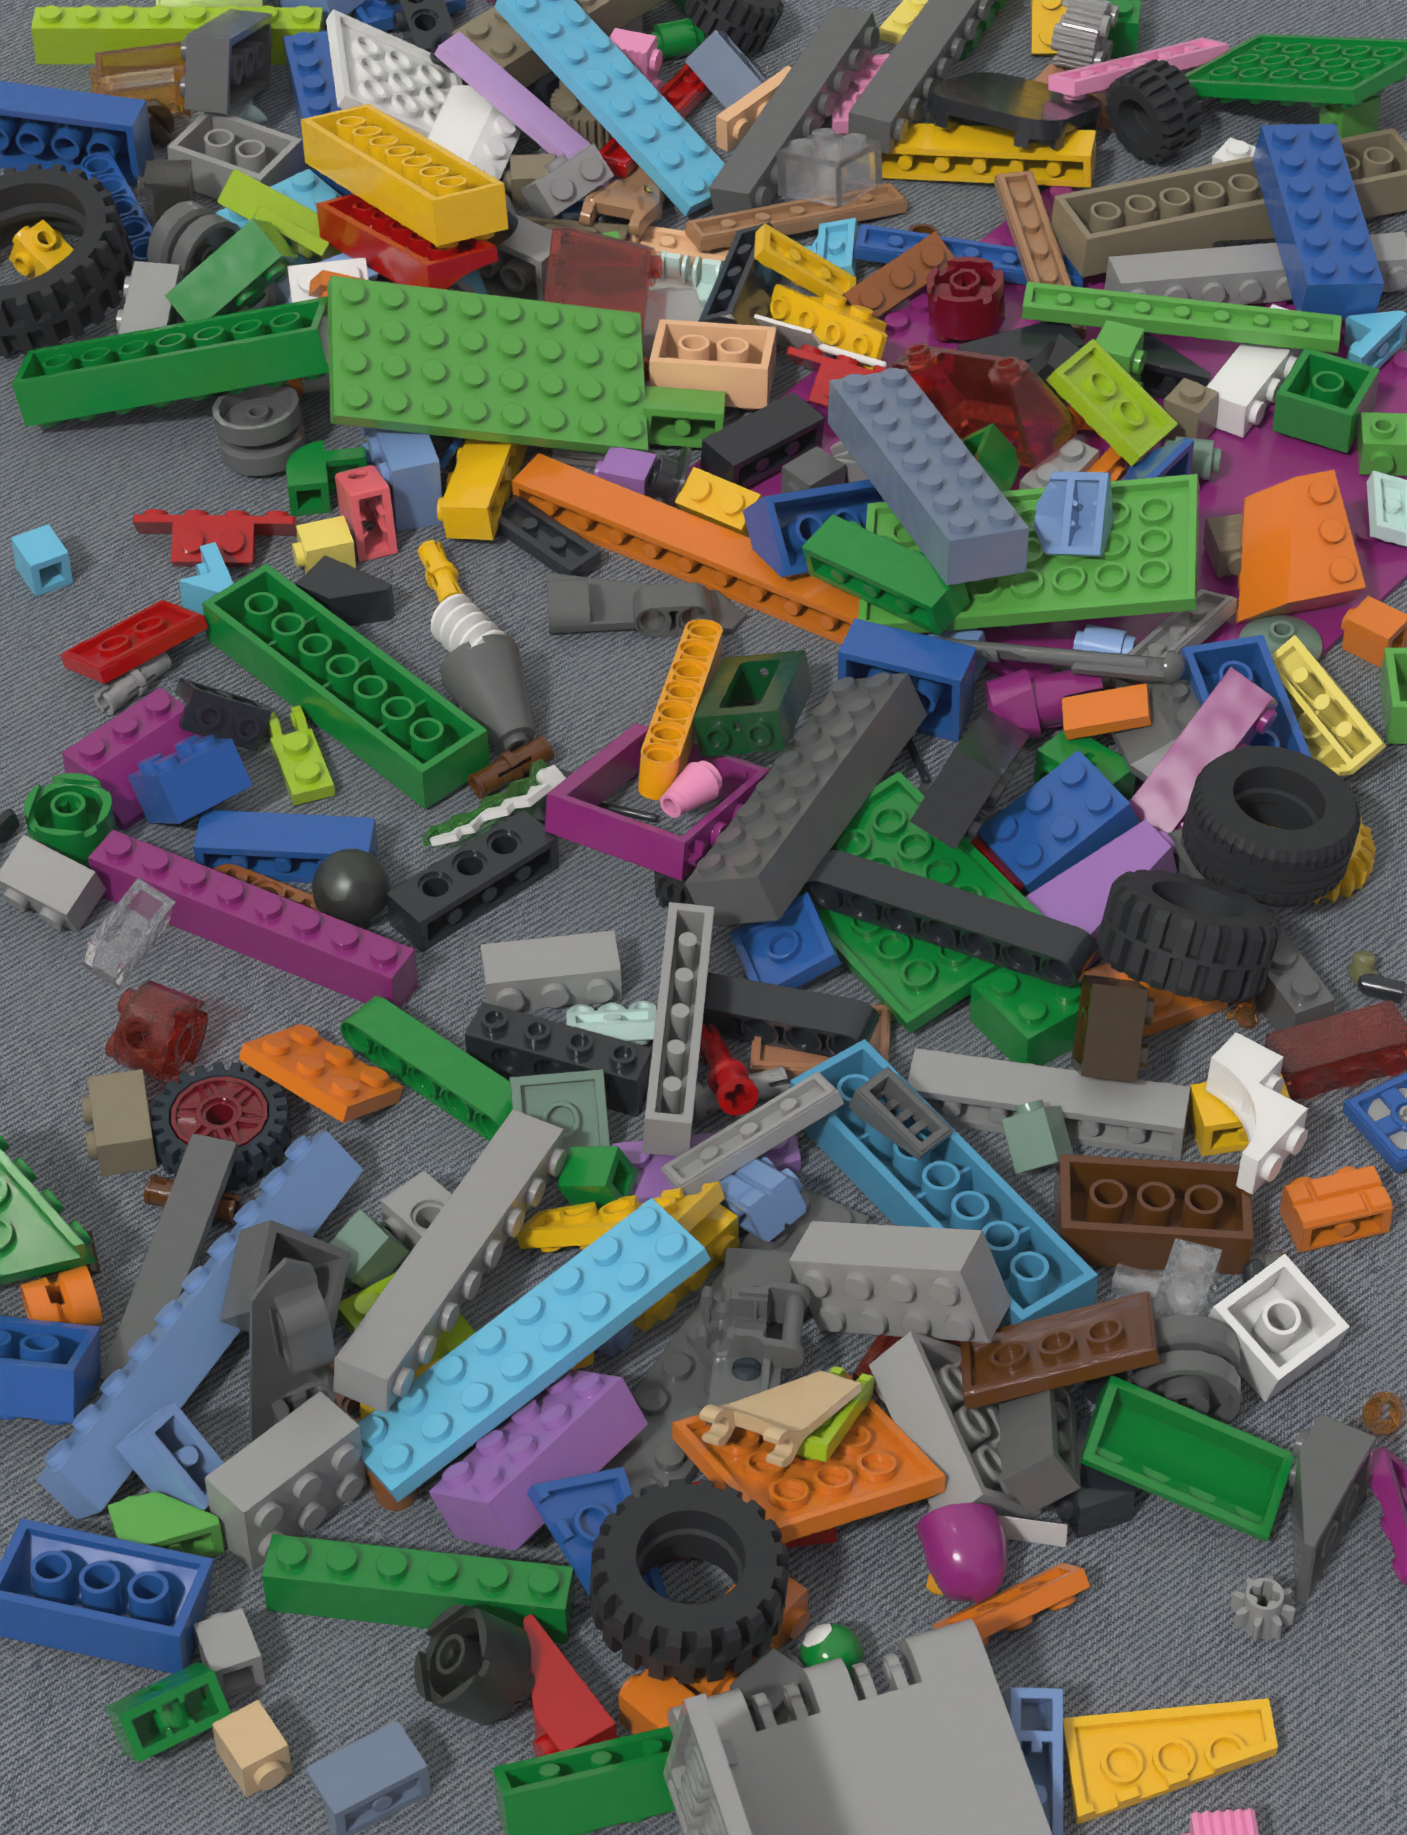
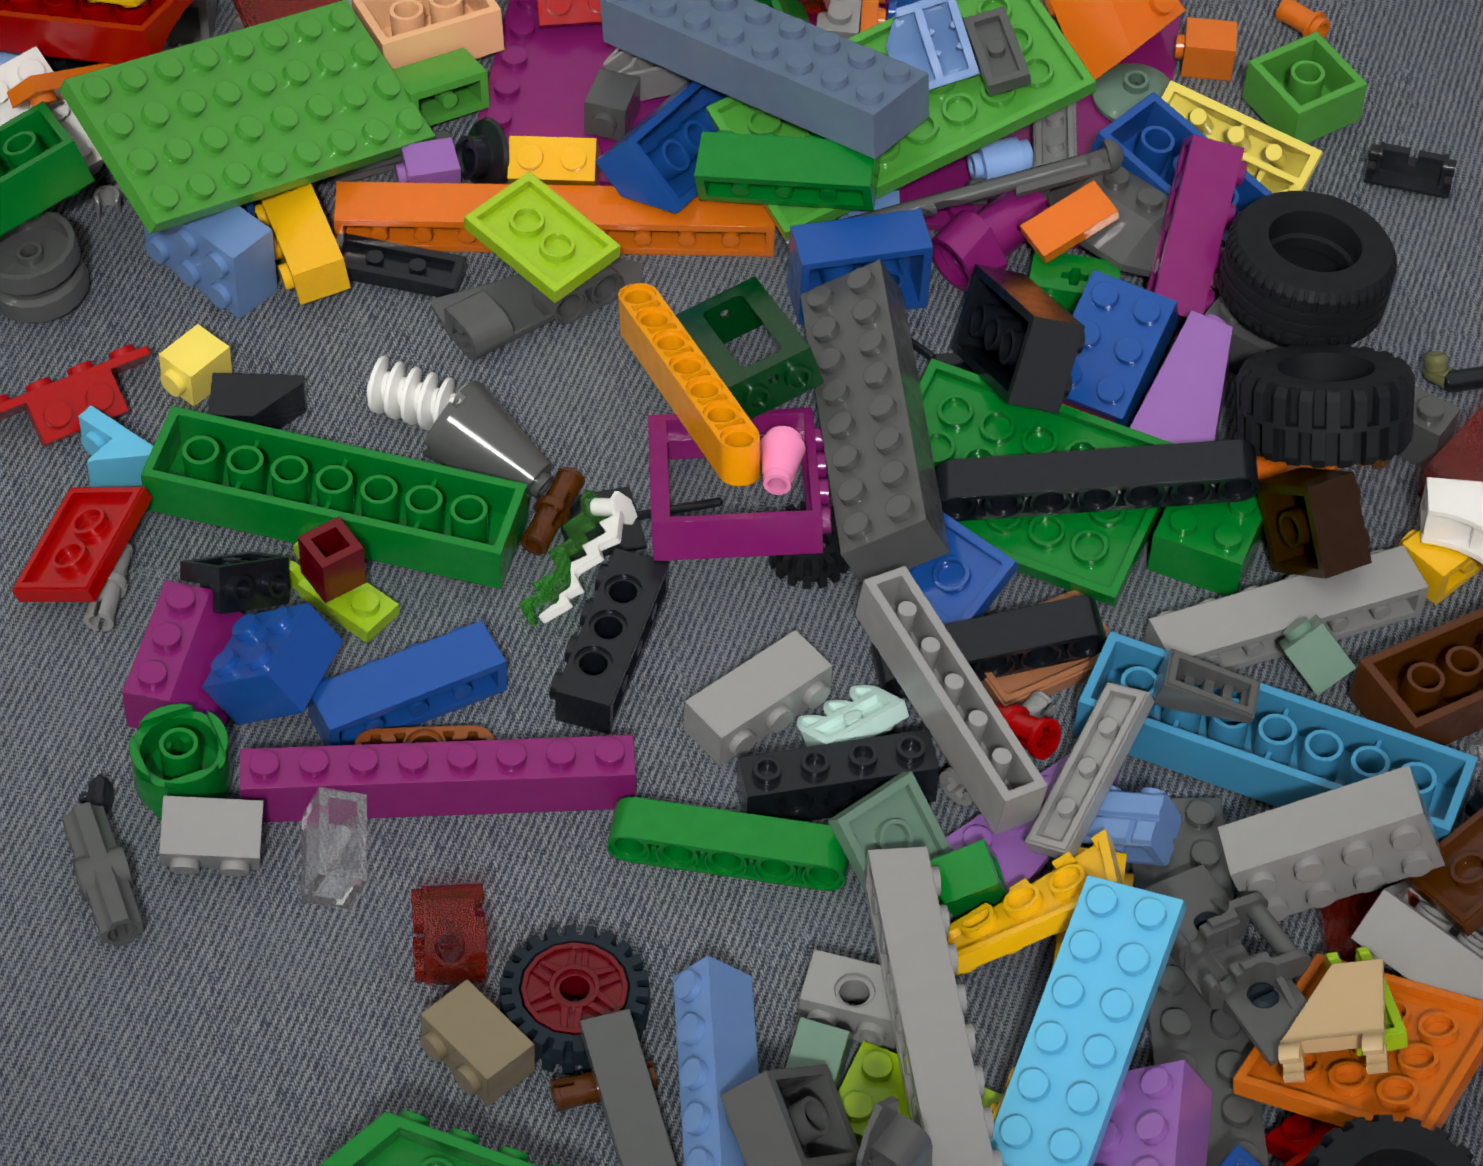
camera: 35 degrees left, 5 degrees up
(290, 722) = (332, 559): none -> dark red brick
(313, 473) = (127, 292): green brick -> none
(321, 1072) = (630, 899): orange plate -> none
(351, 886) = (512, 700): pearl dark grey piece -> none
(367, 498) = (211, 299): coral torso -> none
(440, 573) = (327, 345): yellow pin -> none
(657, 553) = (542, 237): none -> lime plate
(763, 441) = (537, 82): black brick -> none
(1123, 540) = (997, 51): none -> dark grey plate

